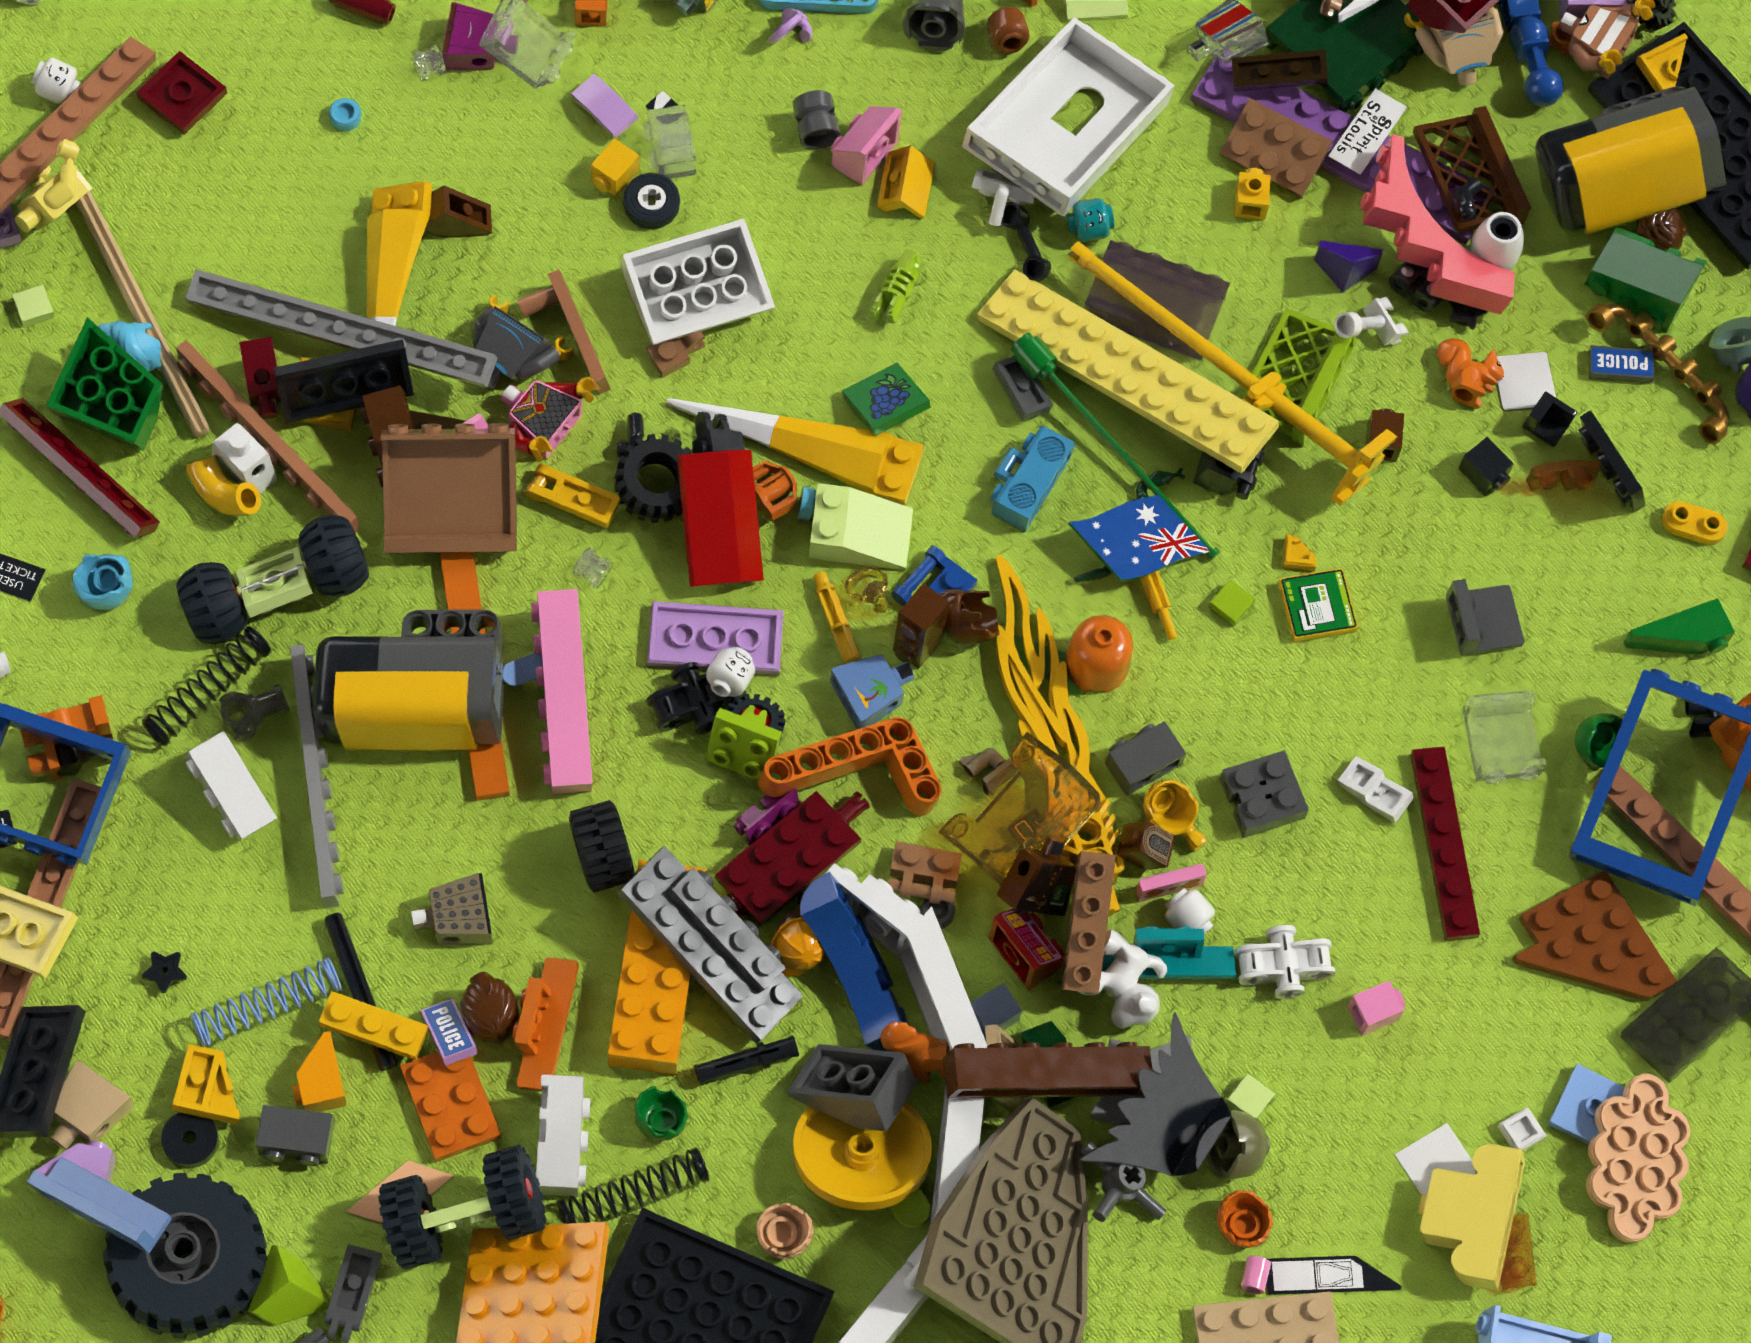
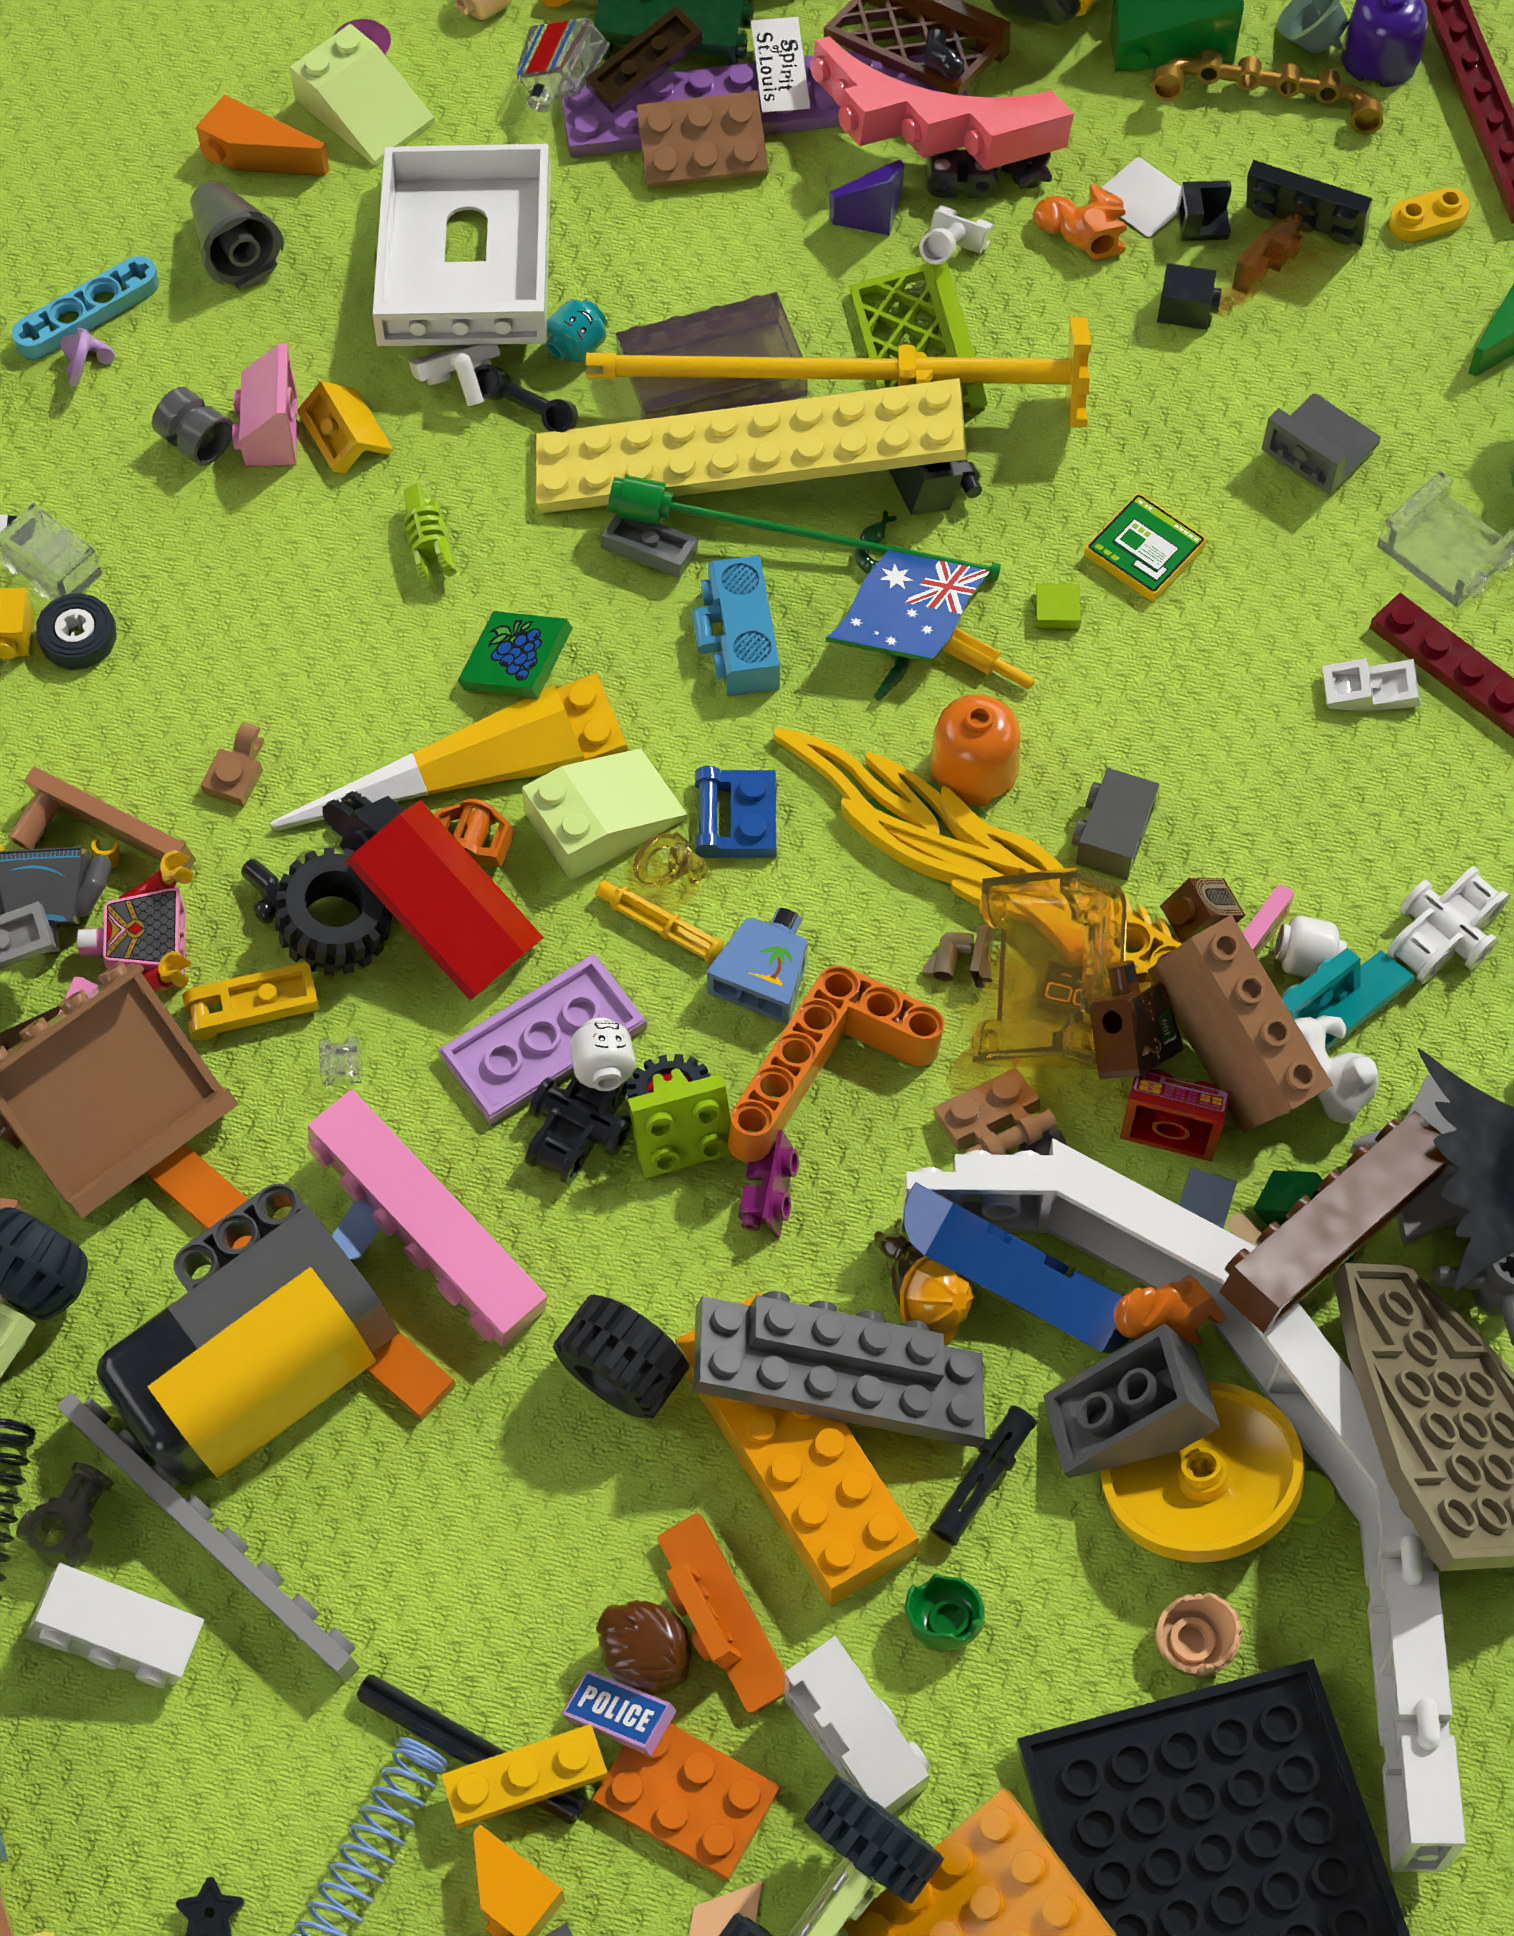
camera: 30 degrees left, 5 degrees down
(457, 913) = (511, 1565): dark tan torso -> none
(697, 282) = (201, 675): white slope -> none
(700, 1167) = (1022, 1627): black piece -> none
(791, 856) = (836, 1208): dark red plate -> none
(806, 503) = (523, 822): medium azure tile -> none
(920, 626) = (769, 852): reddish brown brick -> none
(969, 618) = (803, 813): reddish brown hair -> none
(1008, 30) = (323, 207): dark orange head -> none
(1174, 810) = (1197, 850): yellow hair -> none
(1252, 194) = (714, 192): yellow brick -> none
(1264, 794) = (1268, 771): dark grey piece -> none
(1297, 554) = (1078, 513): yellow tile -> none
(1379, 422) = (1051, 329): reddish brown brick -> none
(1499, 240) = (1010, 65): white piece -> none
(1621, 364) = (1221, 118): tile -> none

